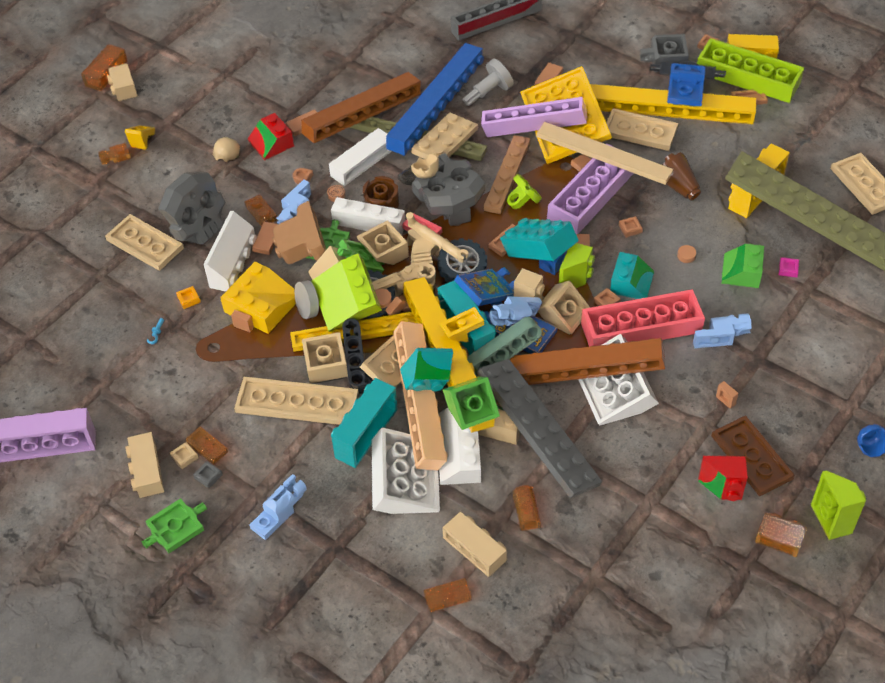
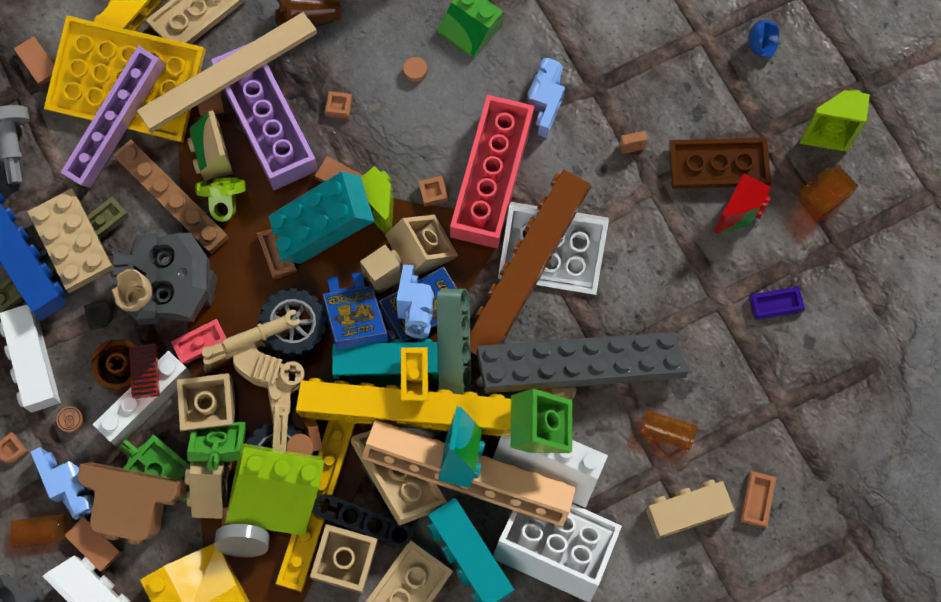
camera: 65 degrees left, 20 degrees up
(382, 202) = (144, 371): none -> clear red tile
(447, 595) = (734, 571): clear orange plate -> none
(510, 589) = (758, 499): none -> nougat tile
(551, 174) = (209, 148): none -> tan slope
(631, 277) = (417, 147): teal slope -> none
(670, 539) = (776, 303): none -> dark purple tile

